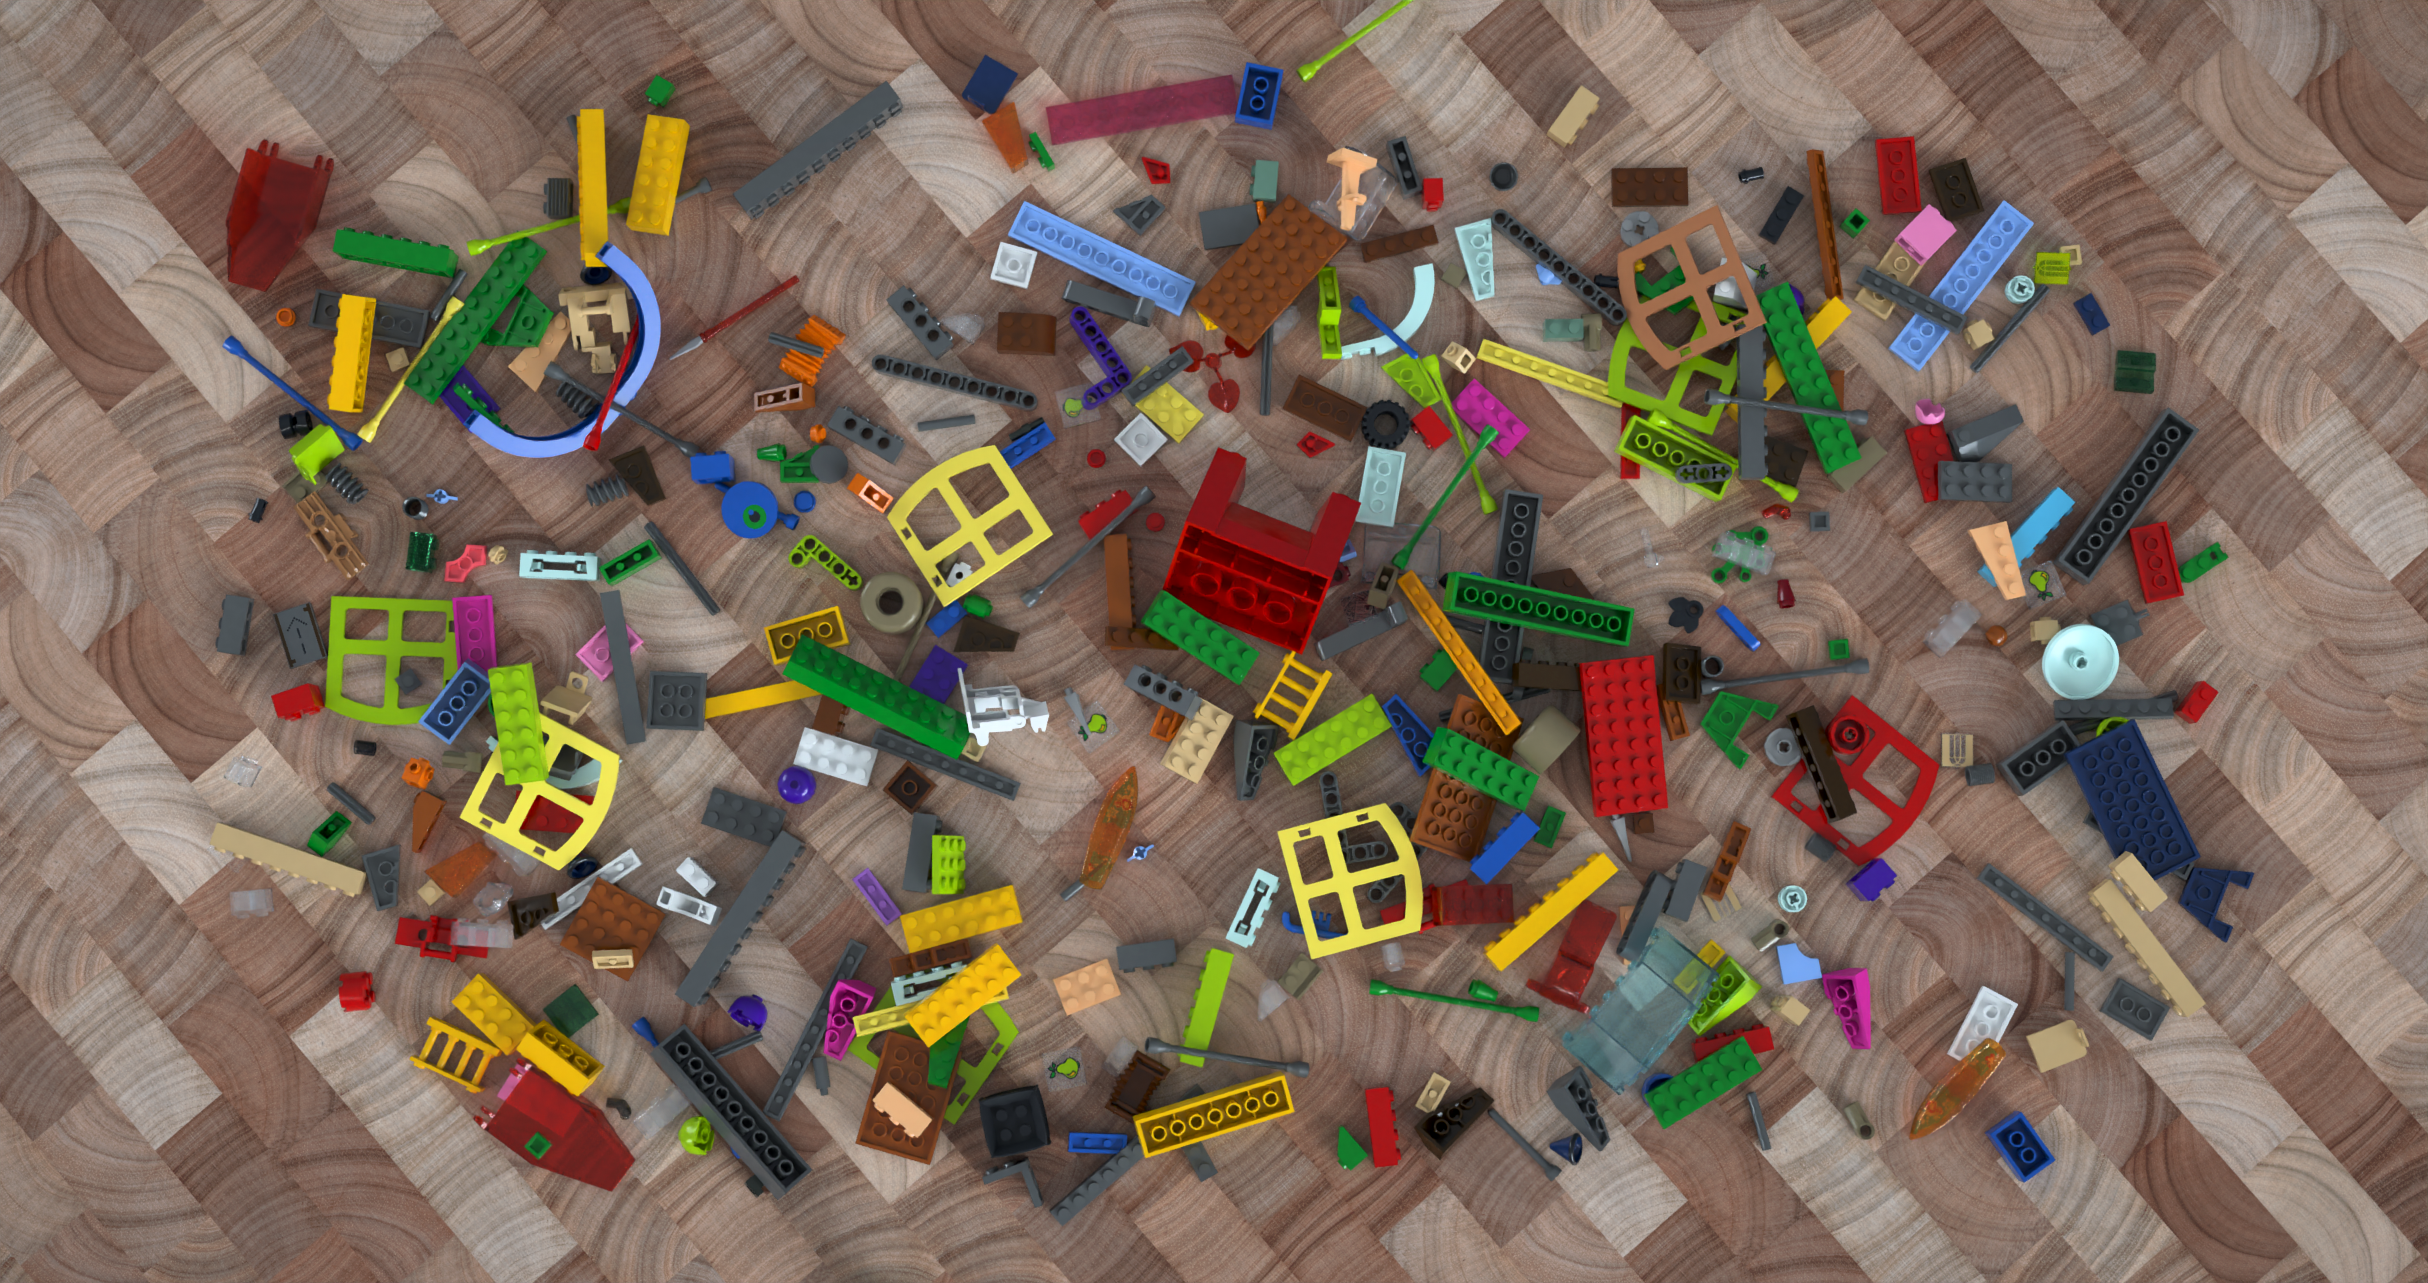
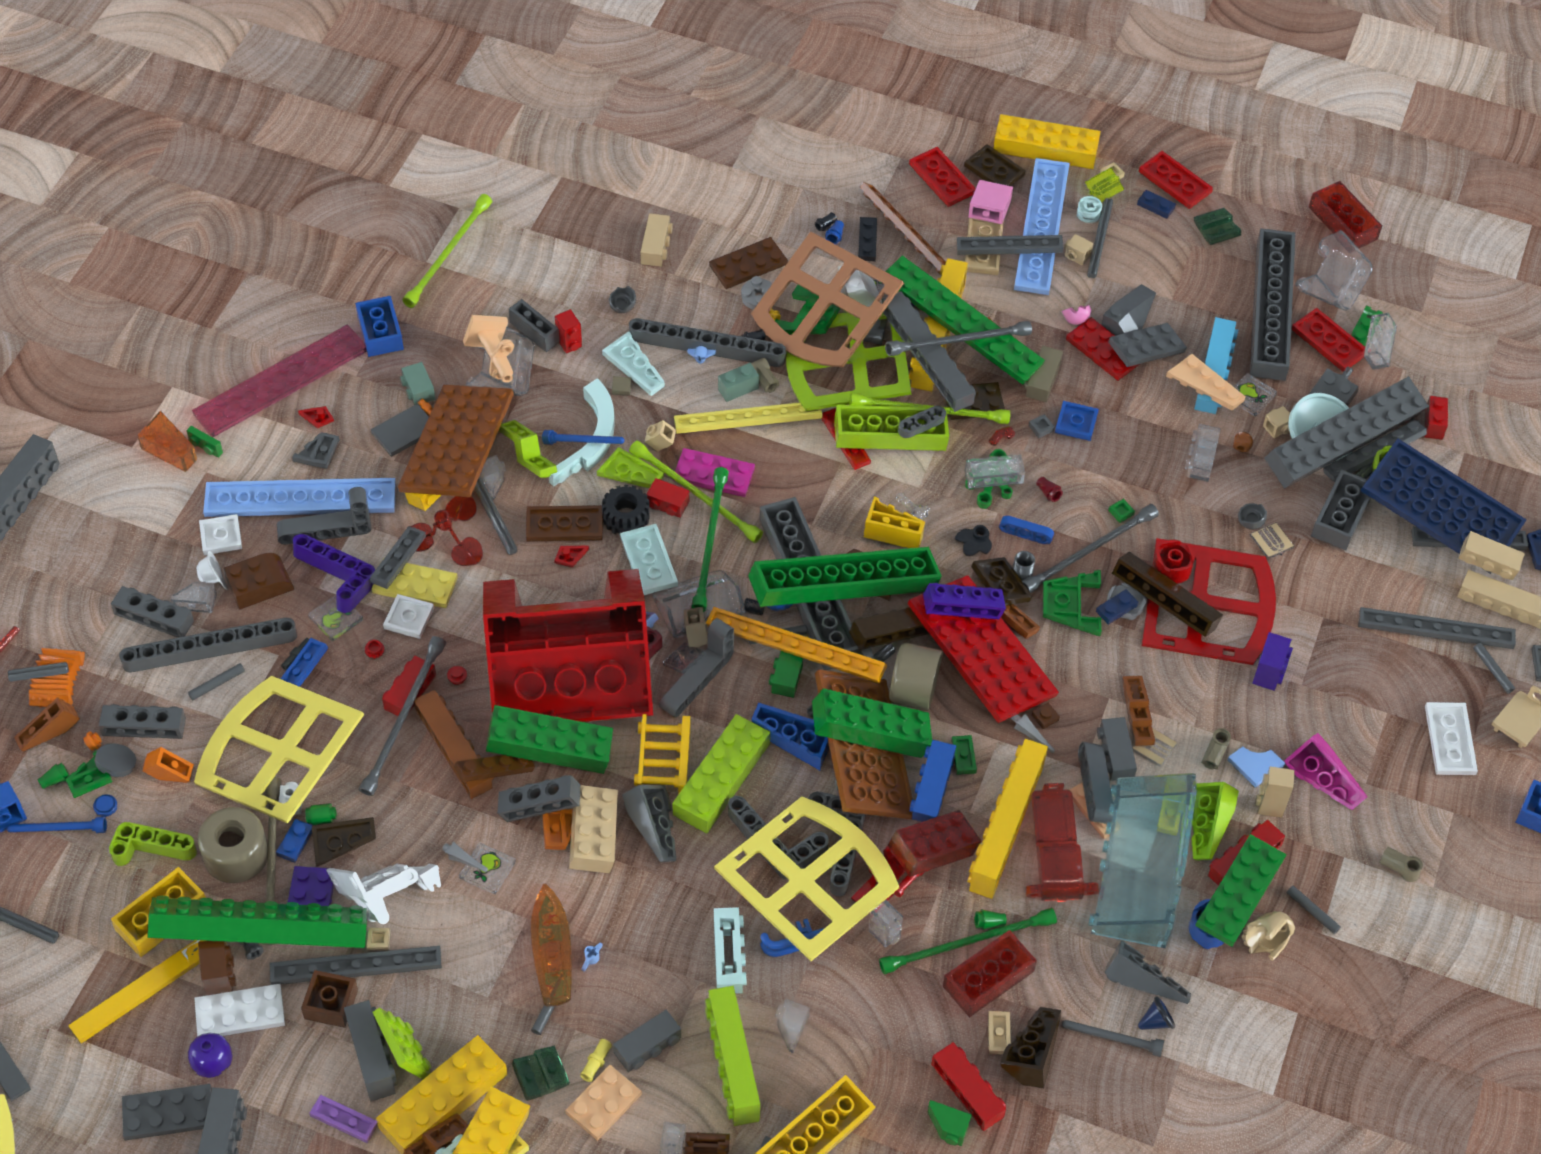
camera: 25 degrees left, 30 degrees down
(676, 701) = (47, 1032): dark grey plate -> none
(750, 509) = (51, 831): blue tile -> none
(987, 306) = (209, 570): none -> white piece
(989, 85) = (131, 411): dark blue piece -> none
(1049, 935) = (540, 1073): none -> clear green slope
(1098, 949) = (596, 1060): none -> light yellow pin
(1297, 1068) = (702, 1094): dark grey hose -> none
(1300, 976) = (810, 989): dark tan plate -> none
(1399, 243) = (560, 383): reddish brown plate -> none
(1453, 1041) = (989, 973): none -> clear red brick
(1617, 565) = (892, 526): none -> yellow wedge
(1629, 689) = (964, 601): none -> dark purple brick
(1706, 1127) = (1268, 933): none -> tan hair
(1752, 194) = (834, 233): none -> blue cone
(1769, 752) = (1117, 606): none -> dark blue plate
(1792, 898) = (1216, 712): light aqua wheel -> none
(1820, 847) = (1211, 660): dark grey piece -> none
(1854, 223) = (929, 216): green brick -> none
(1856, 532) = (1076, 420): none -> blue plate
(1953, 719) = (1252, 516): none -> dark grey hair
(1957, 1088) = (1465, 795): clear orange piece -> none
(1979, 774) = (1303, 545): dark grey piece -> none
(2027, 184) = (1046, 141): none -> yellow brick
(2097, 681) = (1346, 432): none -> dark grey brick
(2128, 295) = (1175, 179): none -> red plate
(2200, 592) = (1380, 341): none -> clear brick
(2215, 492) = (1340, 274): none -> clear windscreen
(2266, 429) = (1344, 212): none -> clear red brick

